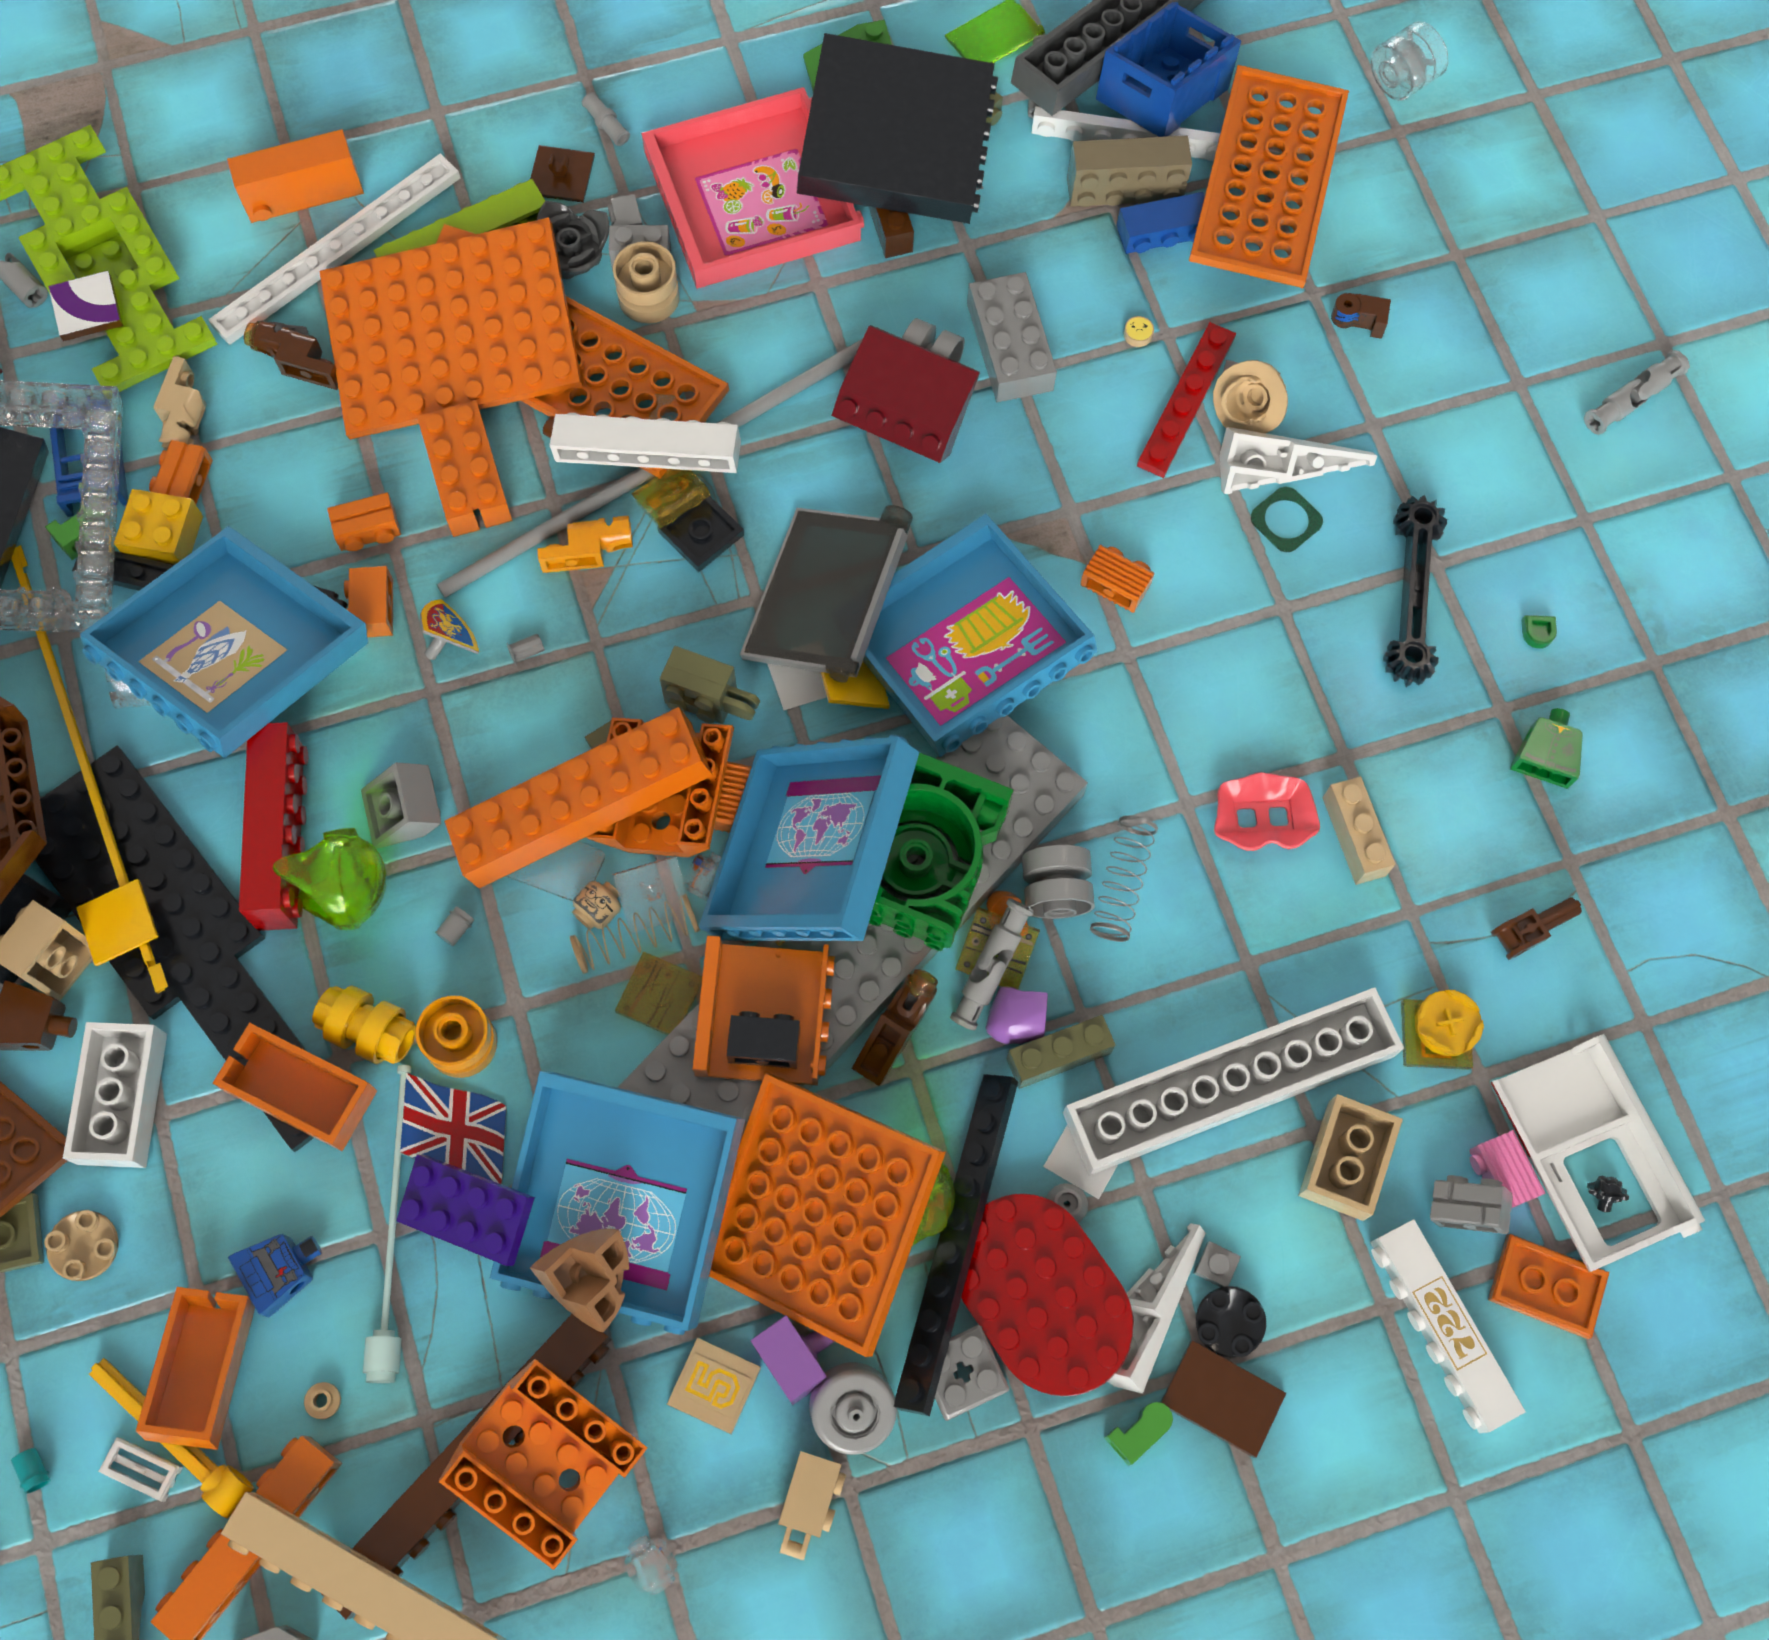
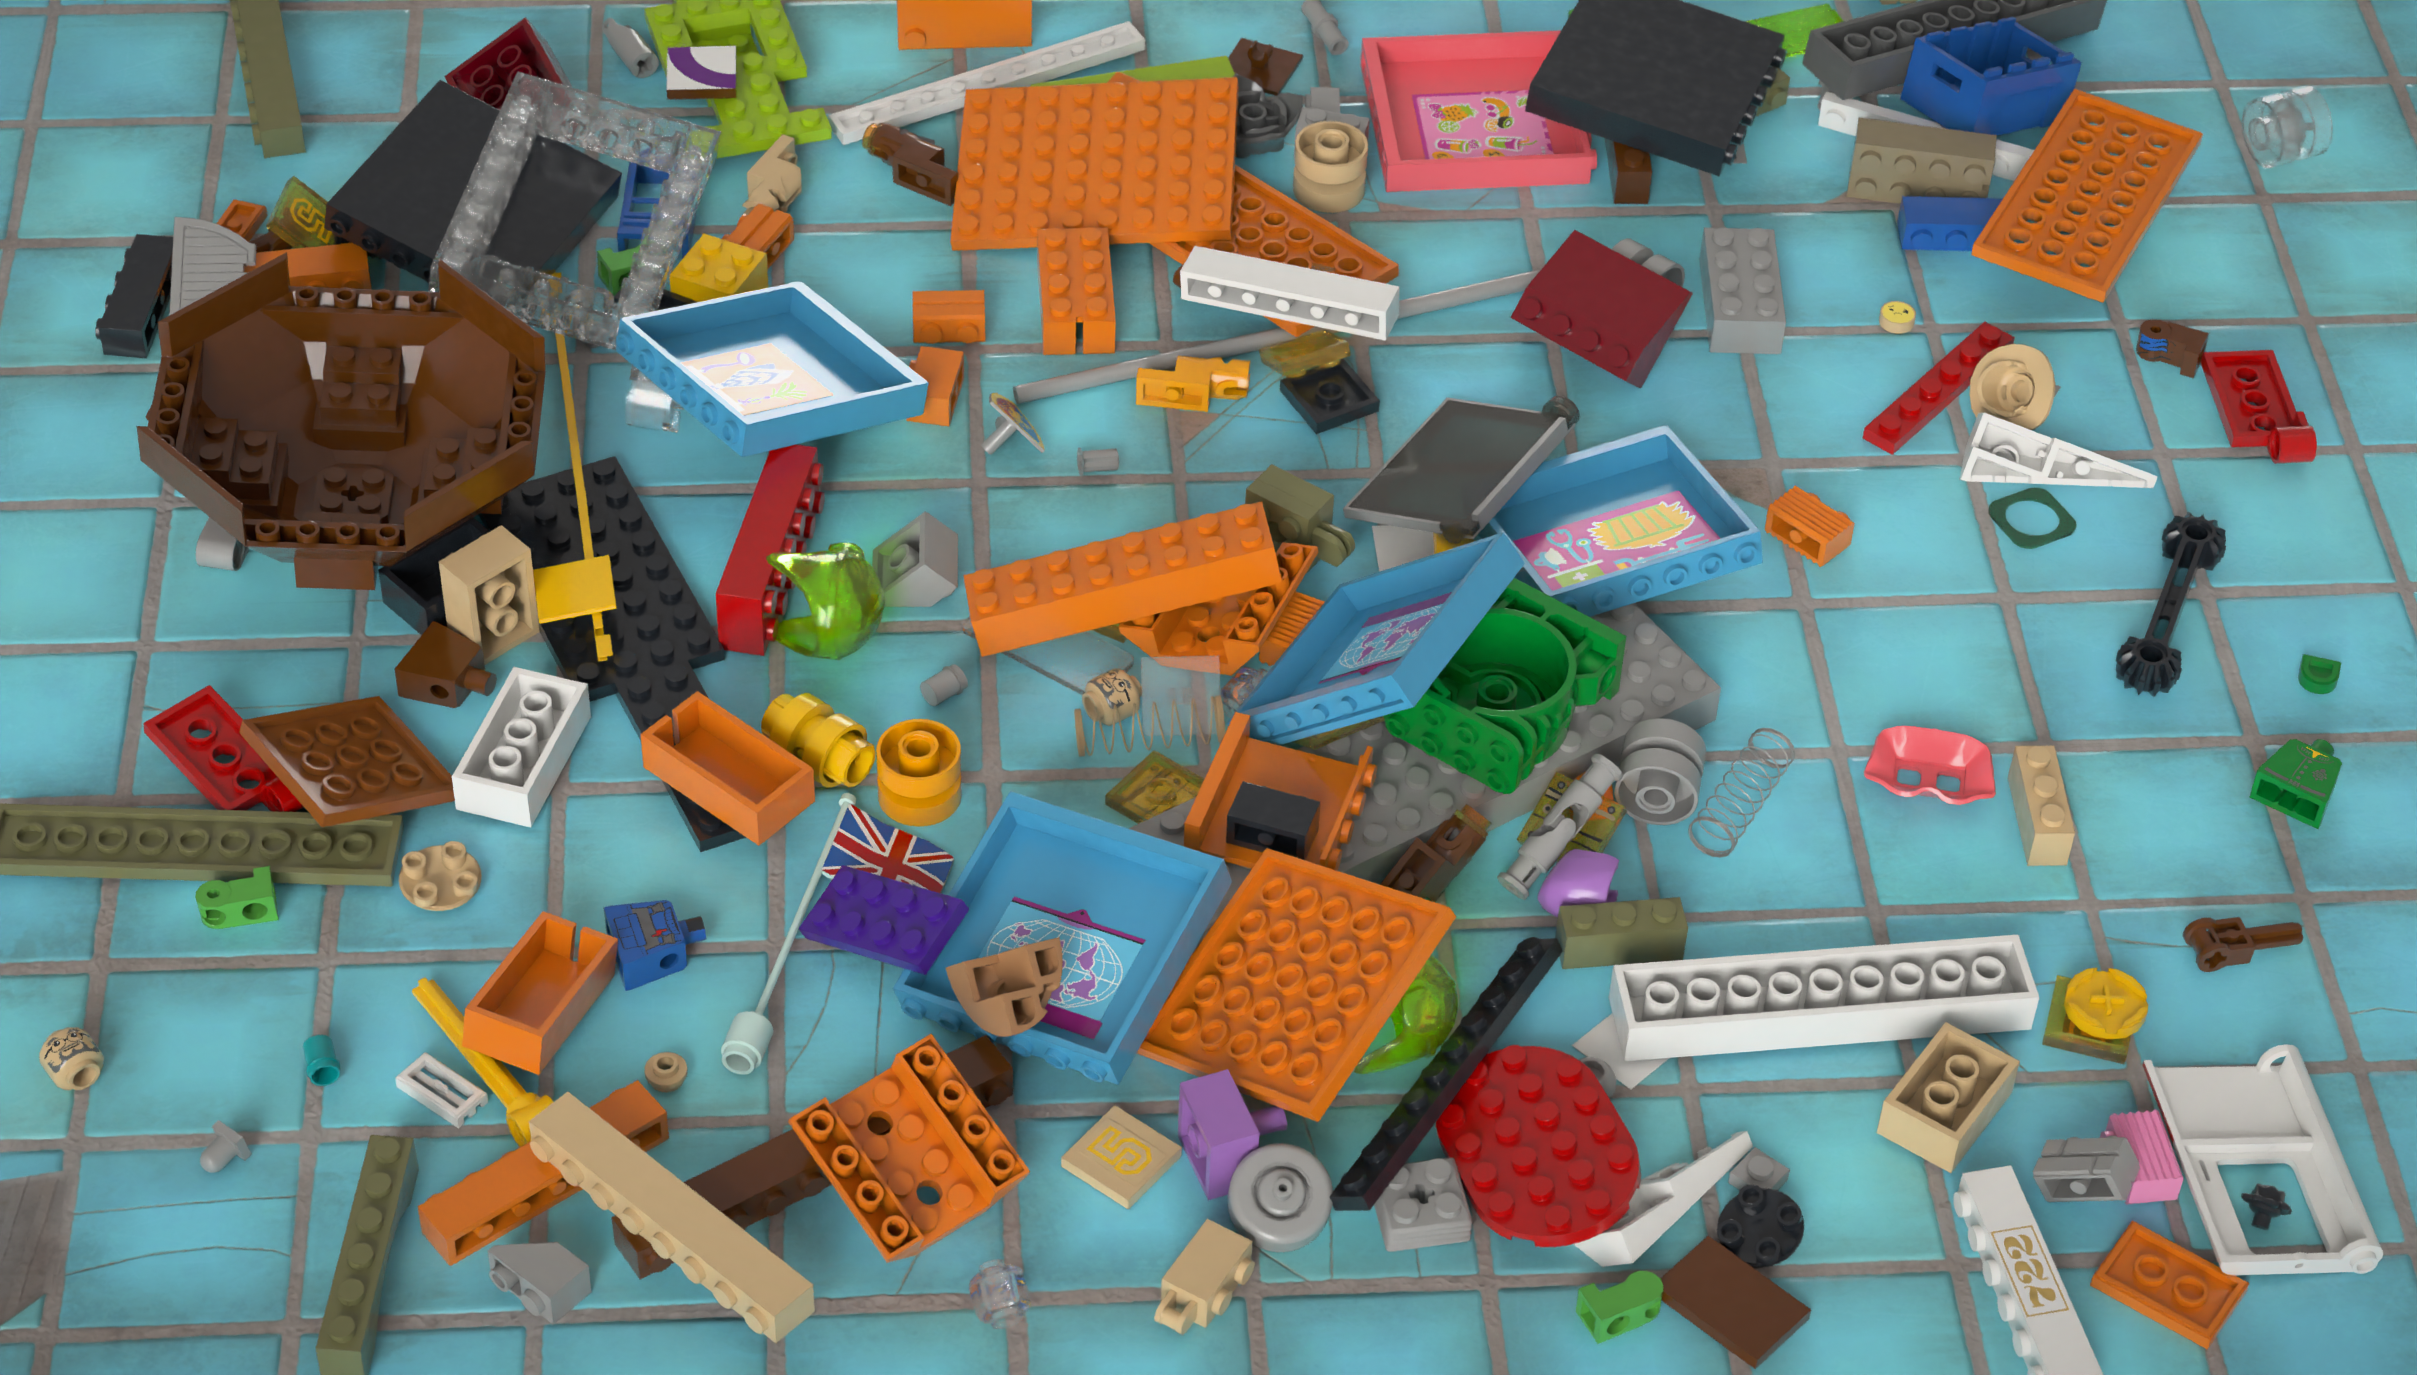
camera: 15 degrees right, 25 degrees down
(1473, 391) = (2287, 431): none -> red hinge

